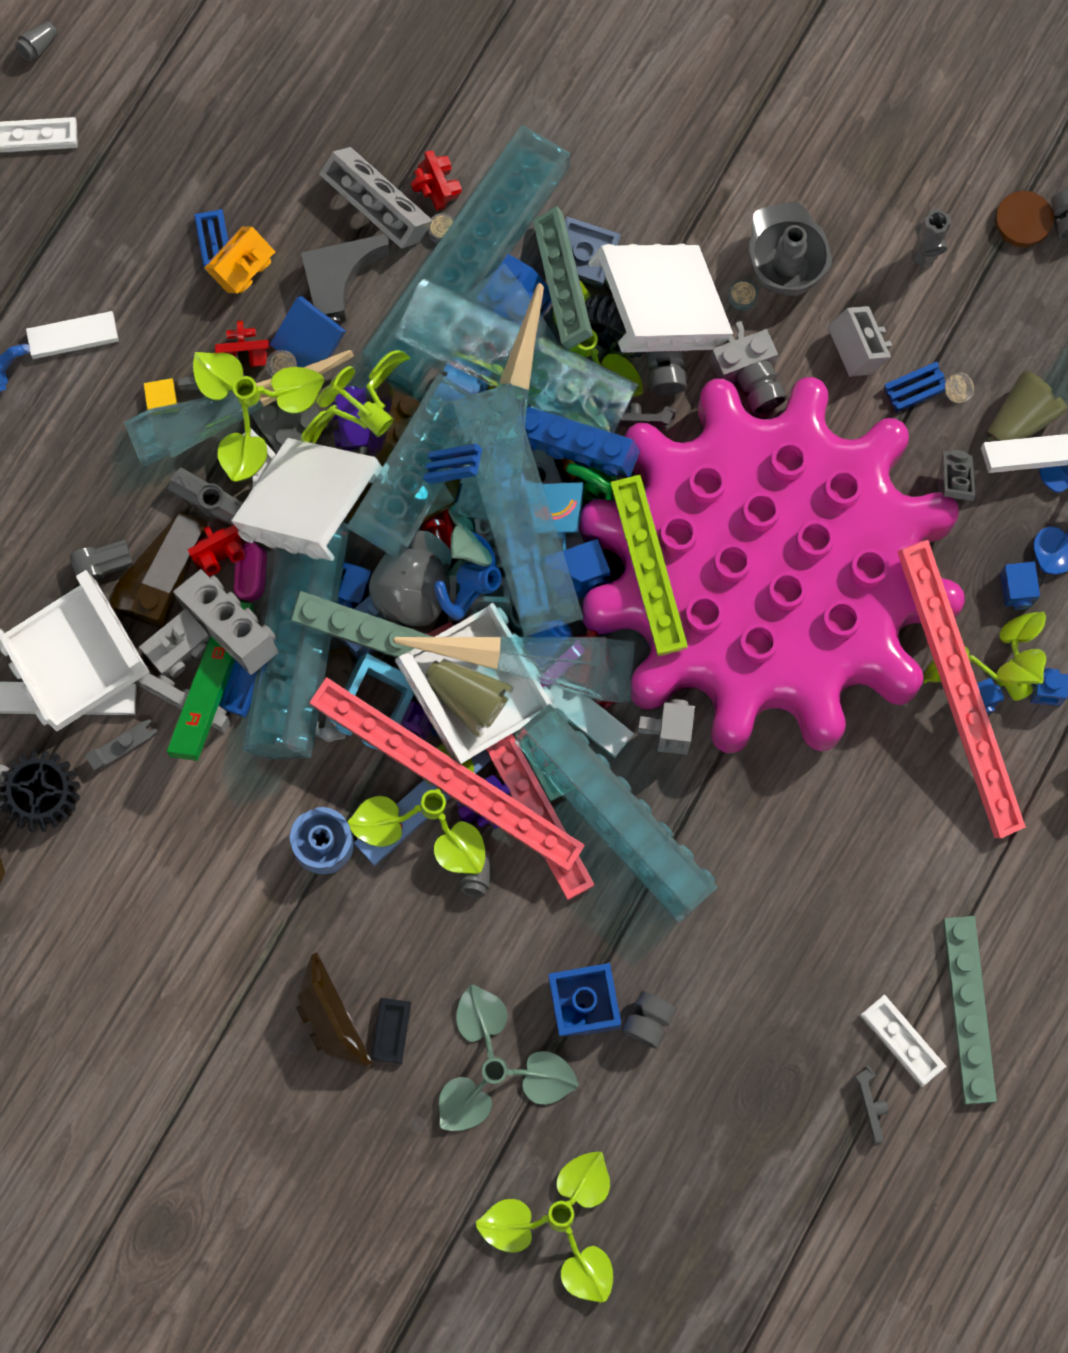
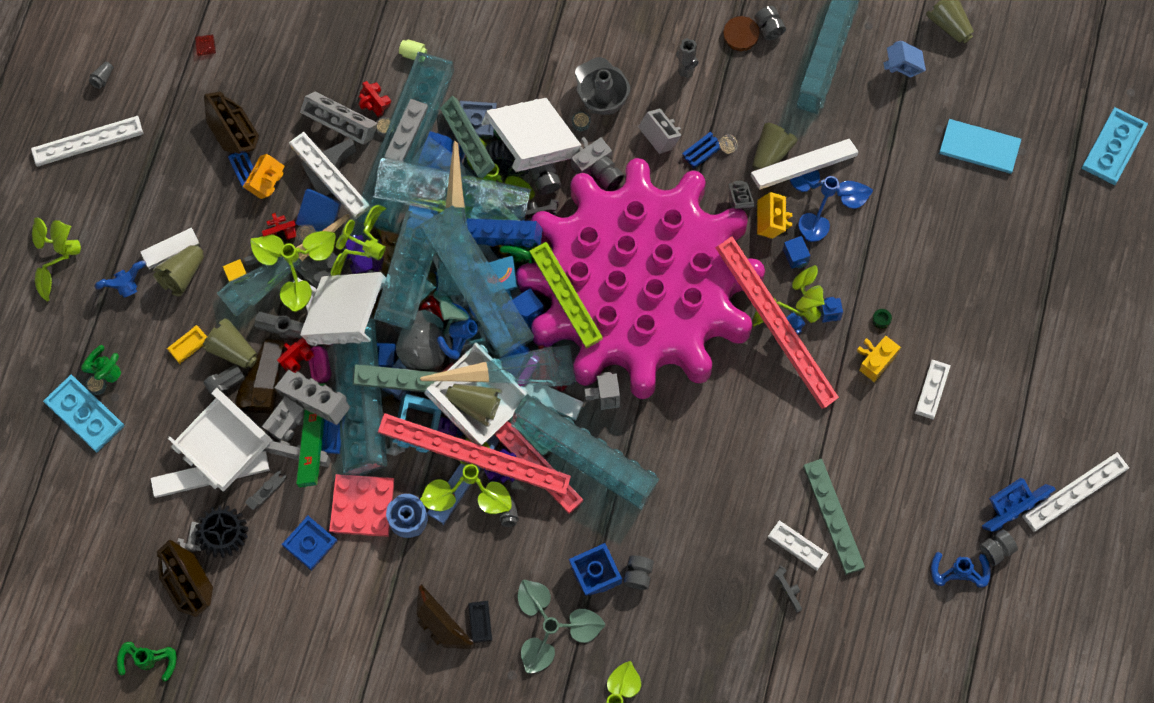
camera: 10 degrees left, 5 degrees down
(62, 490) = (187, 344): none -> yellow tile
(77, 372) = (179, 269): none -> olive cone
(123, 509) = (230, 345): none -> olive cone
(166, 842) = (309, 542): none -> blue tile
(204, 33) = (205, 45): none -> clear red tile
(209, 165) = (229, 124): none -> dark brown wedge
(258, 804) = (361, 505): none -> coral plate
(339, 284) = (329, 175): none -> white tile
(453, 458) = (429, 259): blue tile -> none
(472, 245) = (406, 130): none -> light grey plate
(511, 116) = (410, 49): none -> yellowish green brick
(998, 517) = (772, 215): none -> yellow brick

